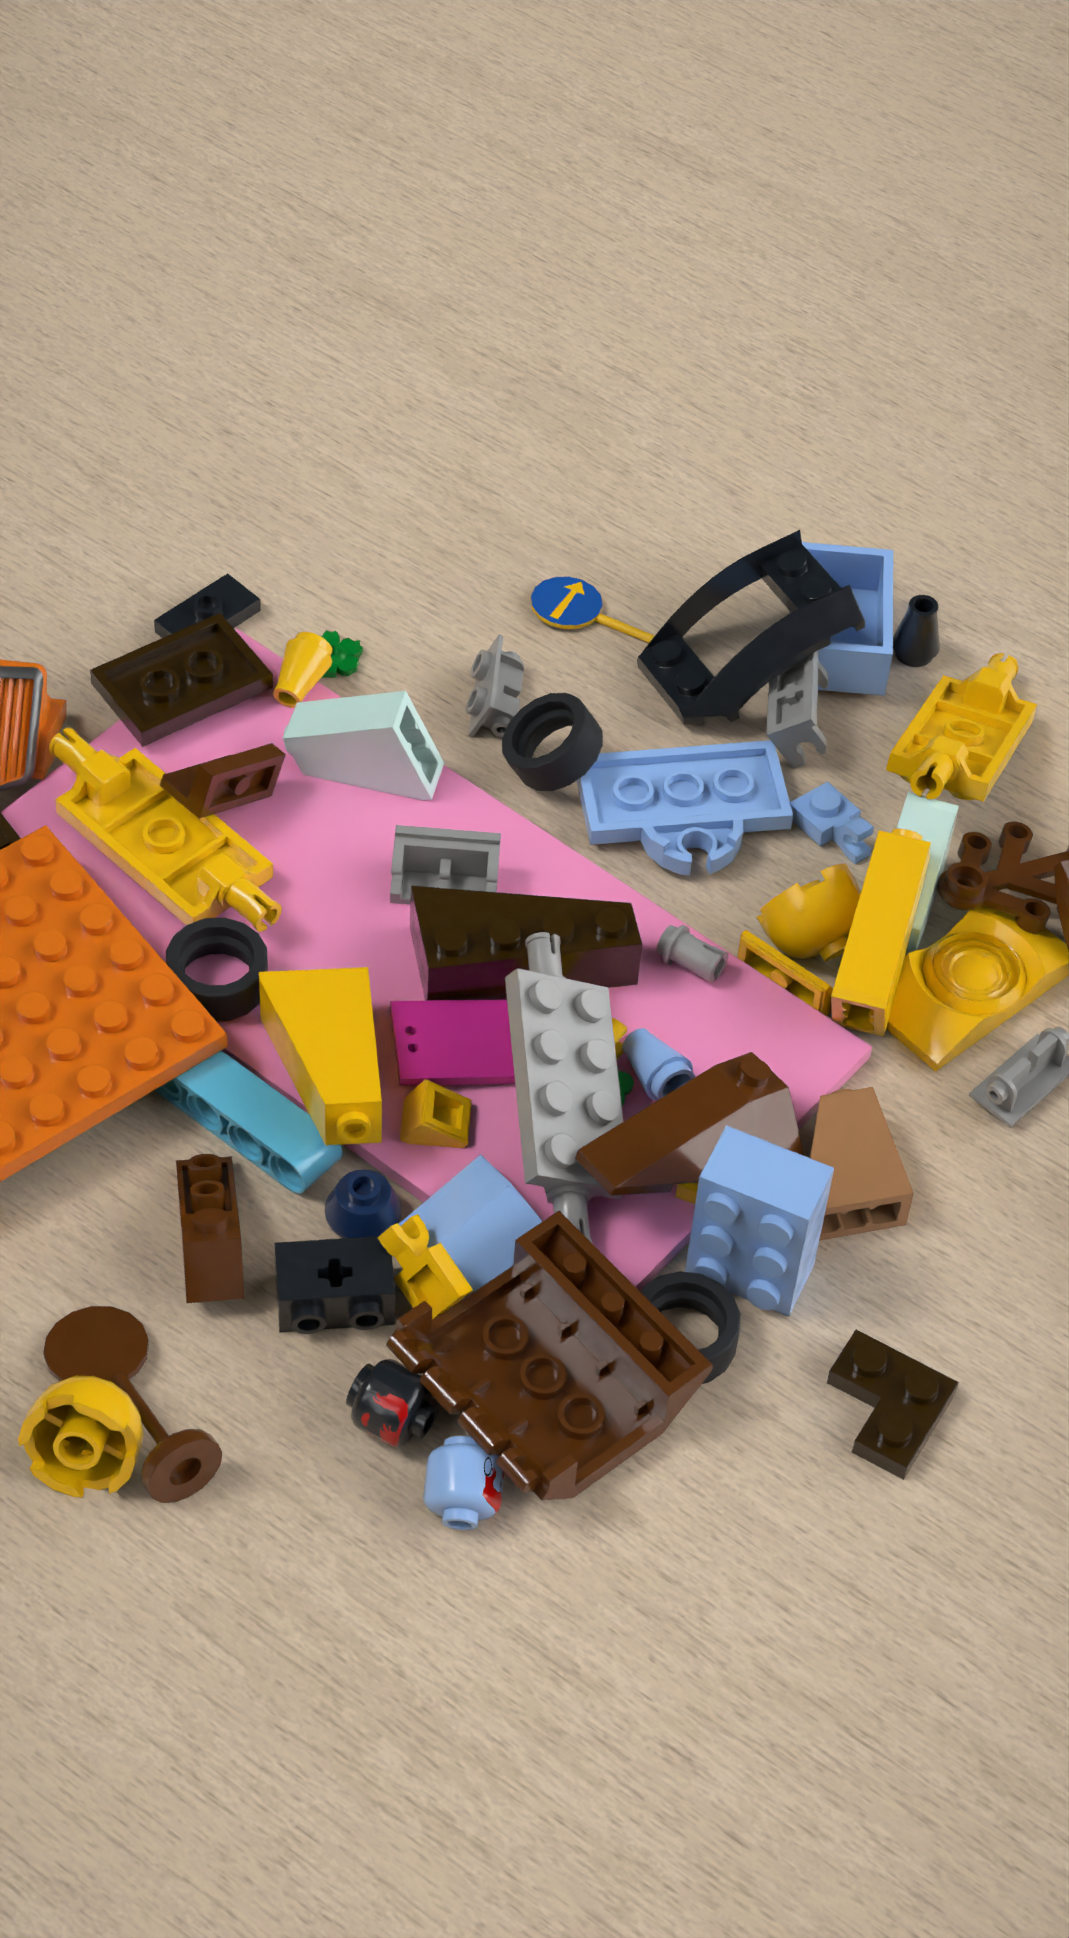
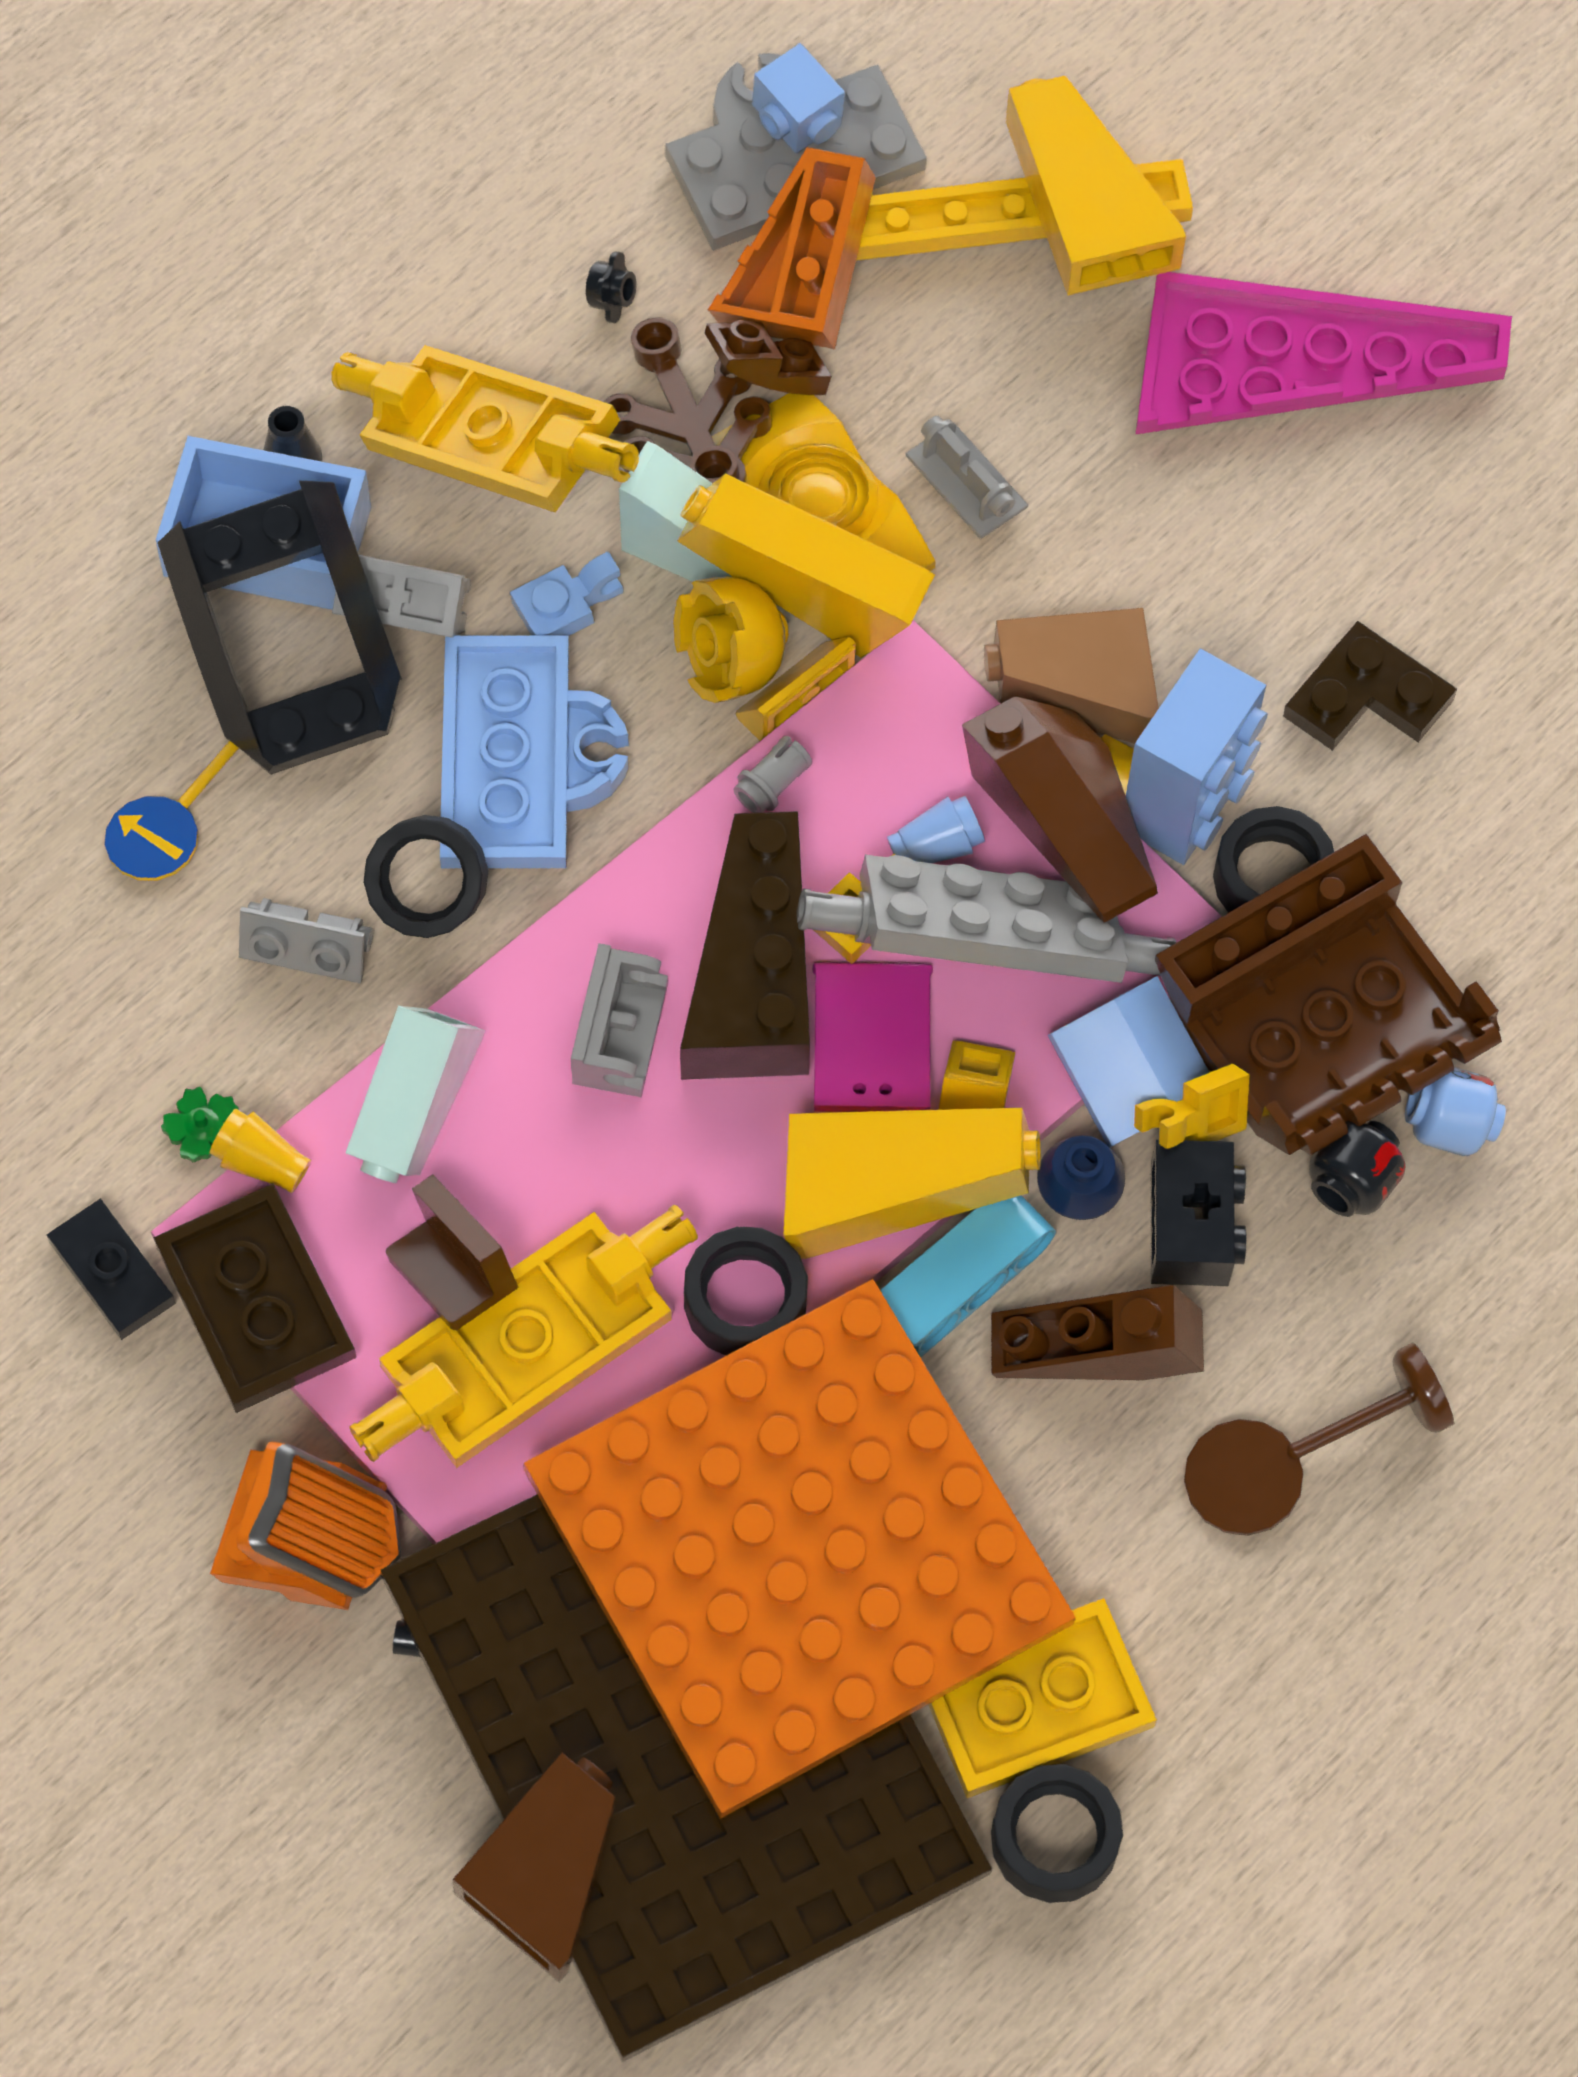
camera: 80 degrees left, 15 degrees up
(82, 1435) = (1375, 1482): yellow cylinder -> none

